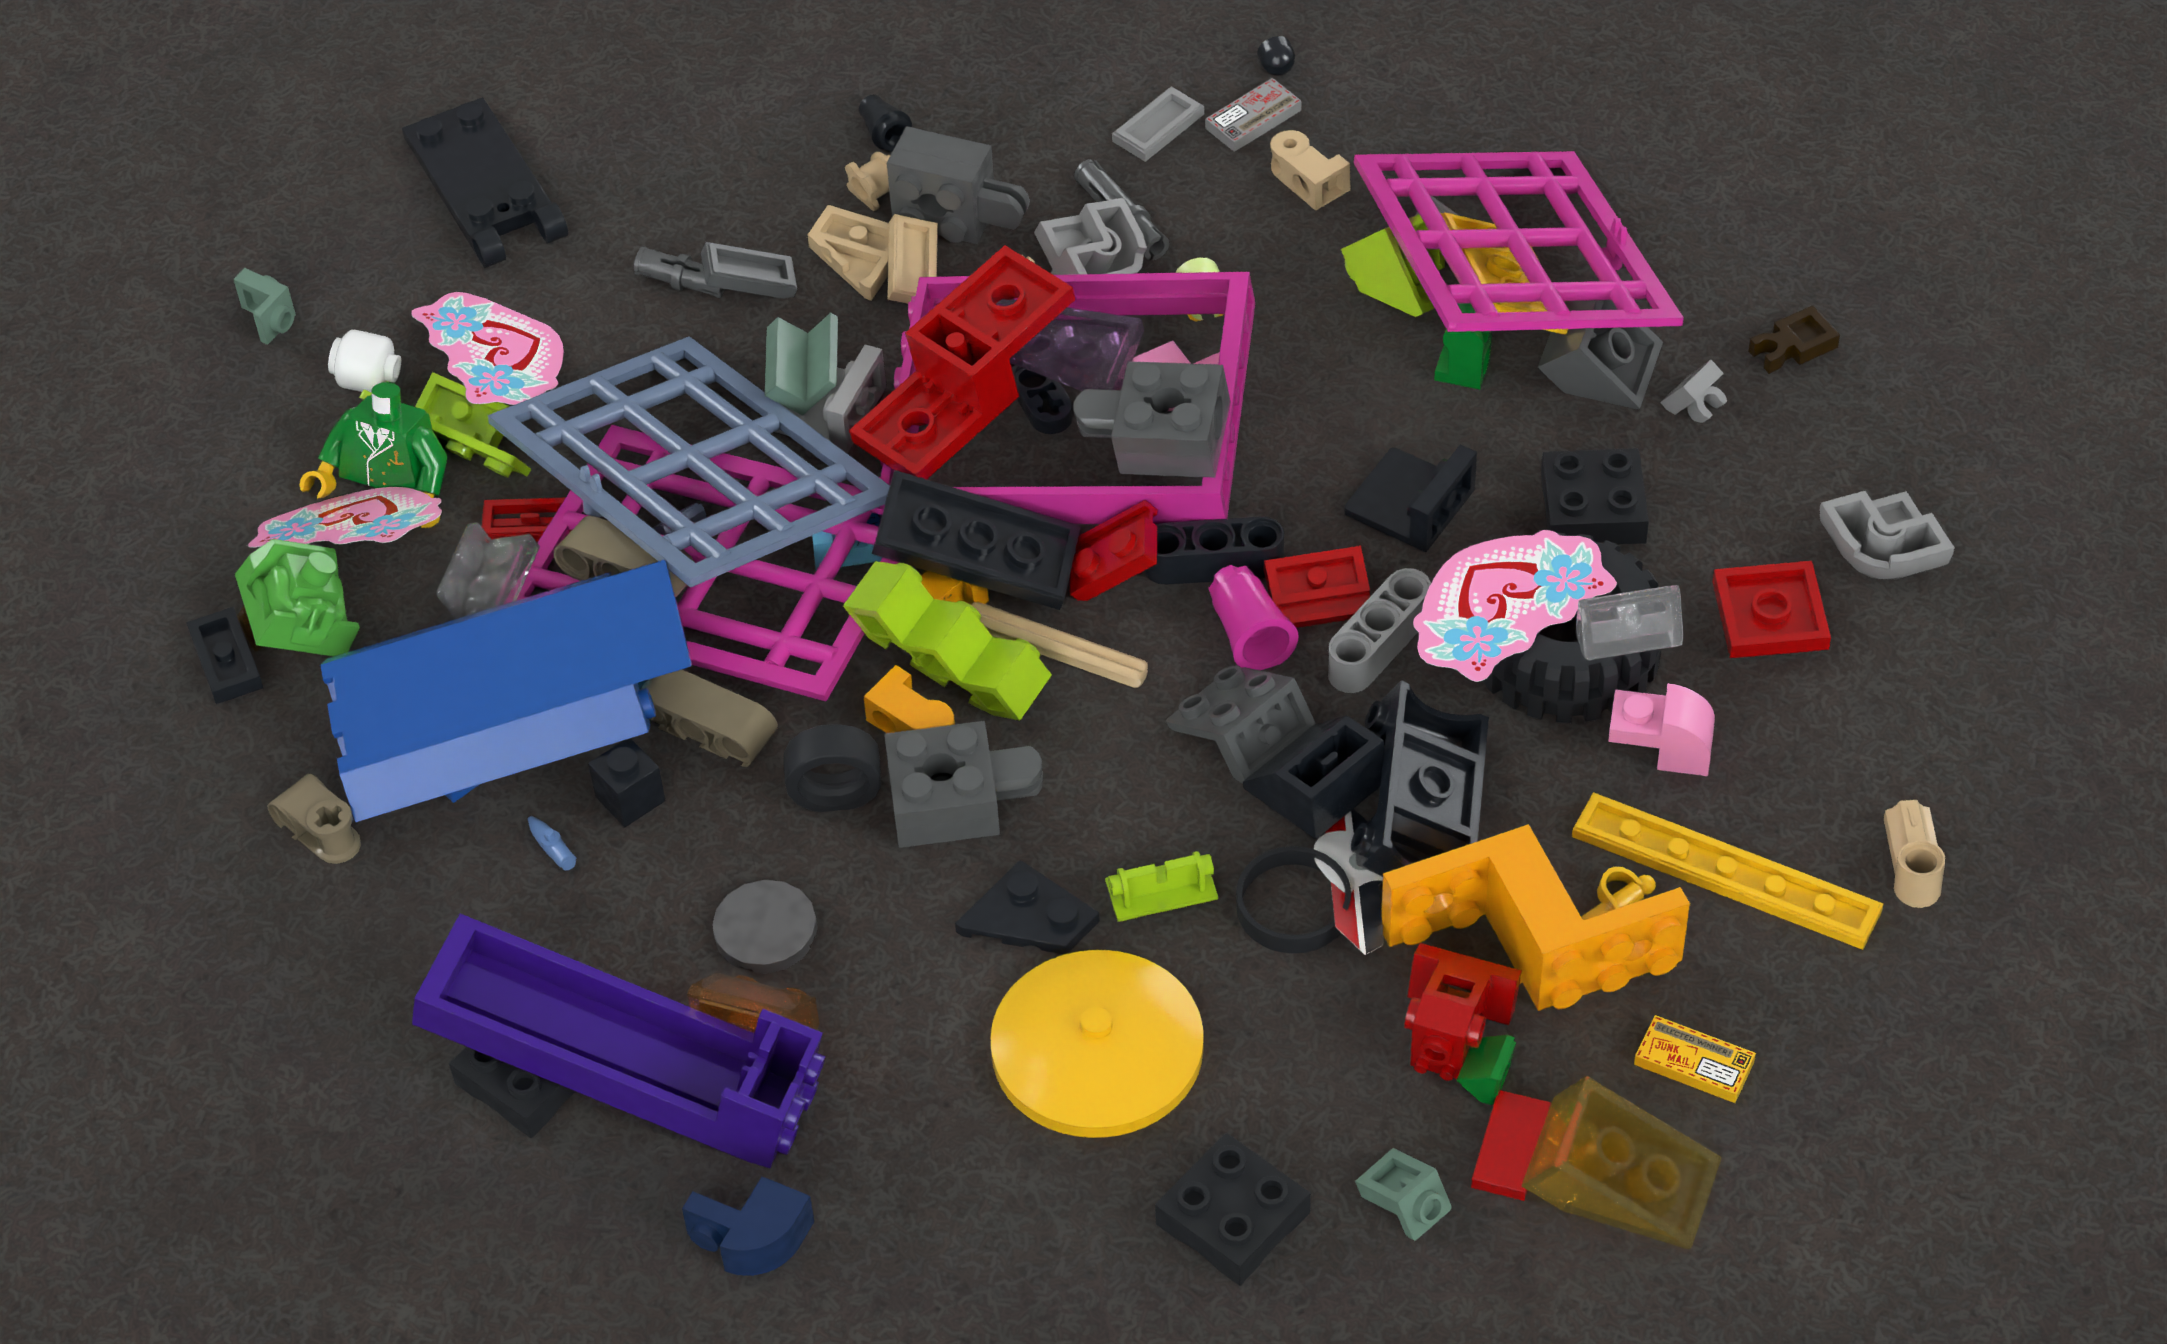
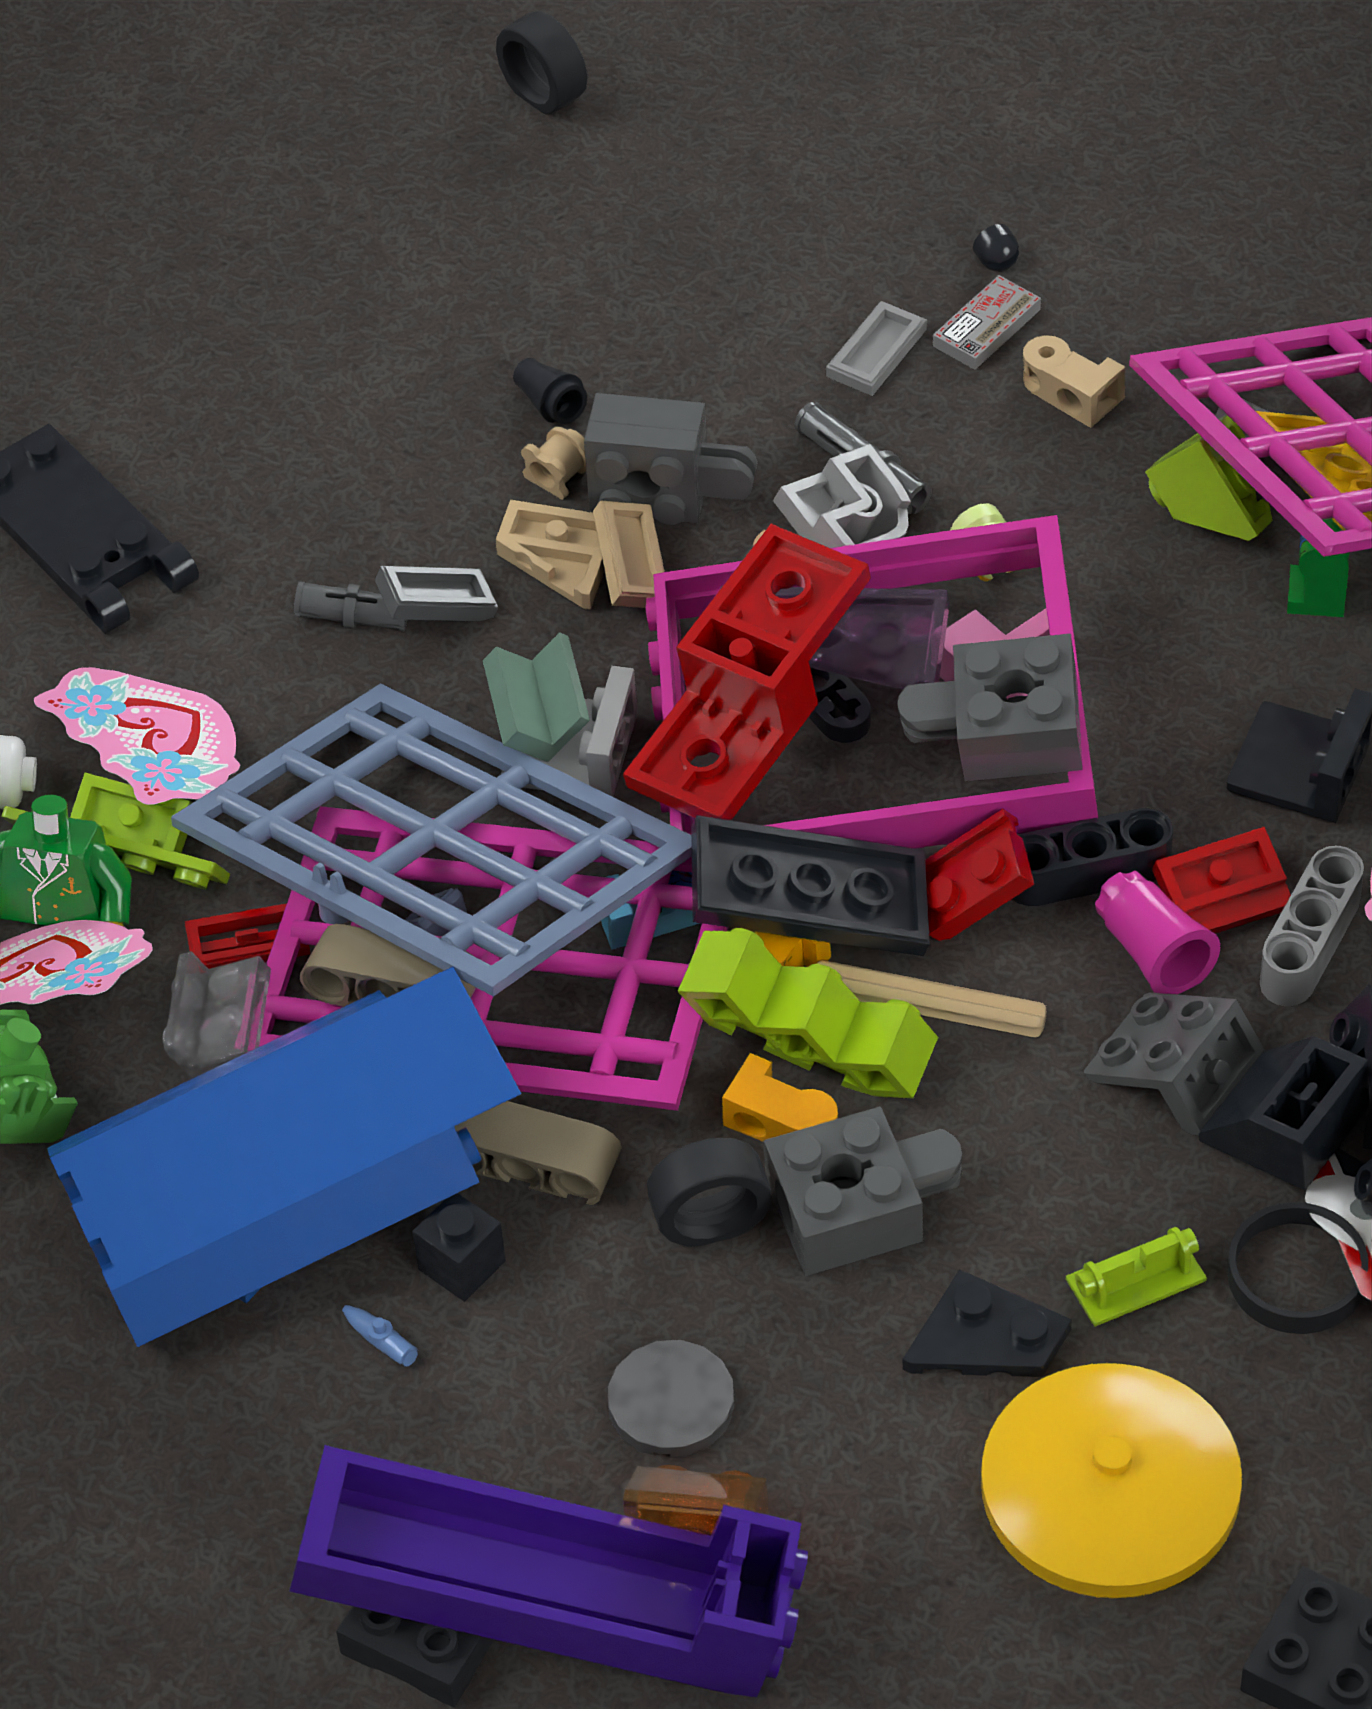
camera: 10 degrees left, 0 degrees up
(317, 819) = (86, 1350): dark tan piece -> none

